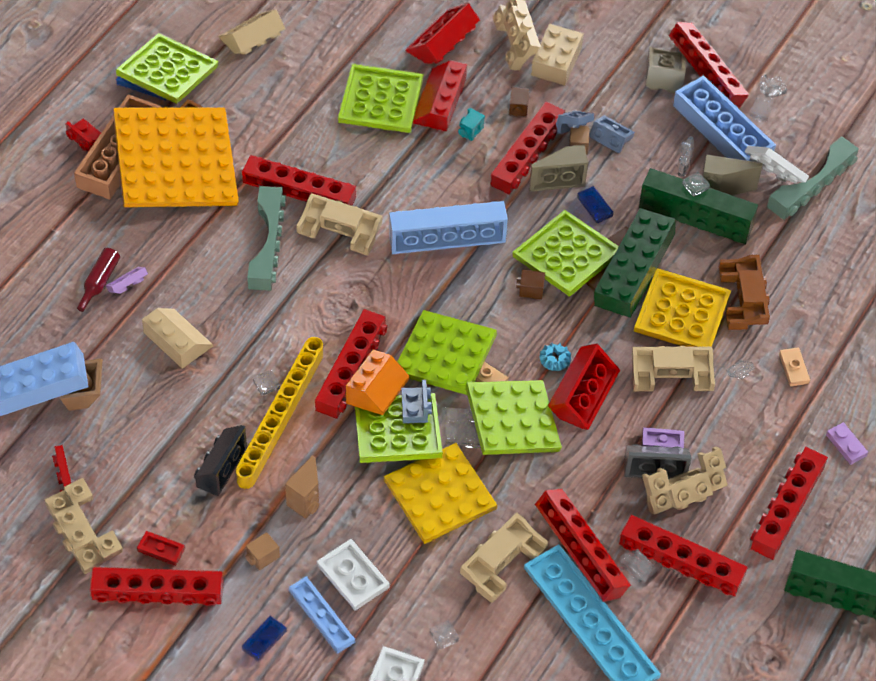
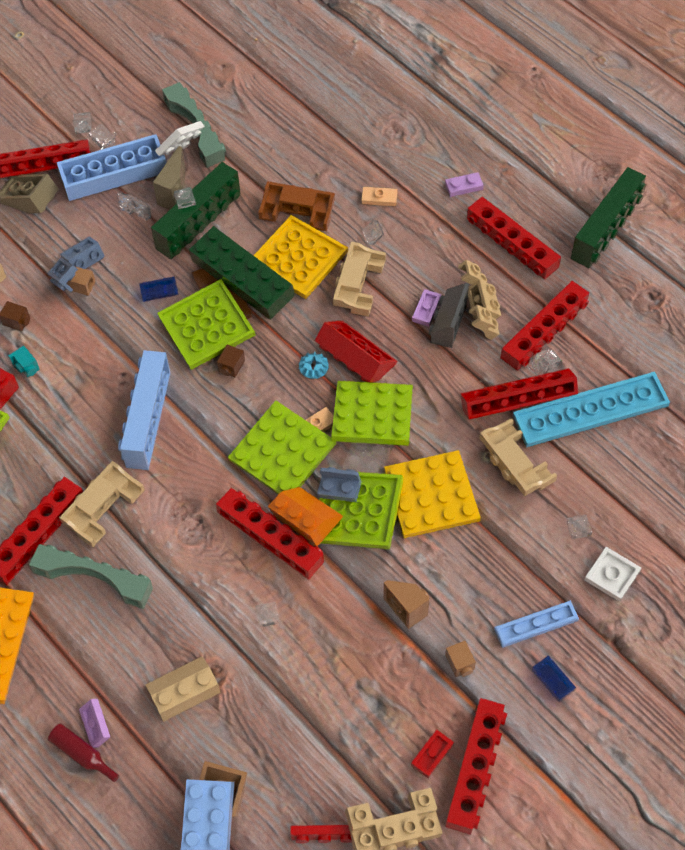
camera: 70 degrees left, 5 degrees up
(221, 460) = (349, 672): black slope -> none
(279, 420) = (310, 616): yellow beam -> none
(353, 574) = (502, 586): white plate -> none
(526, 149) = (52, 304): red brick -> none
(560, 170) = (116, 297): dark tan slope -> none

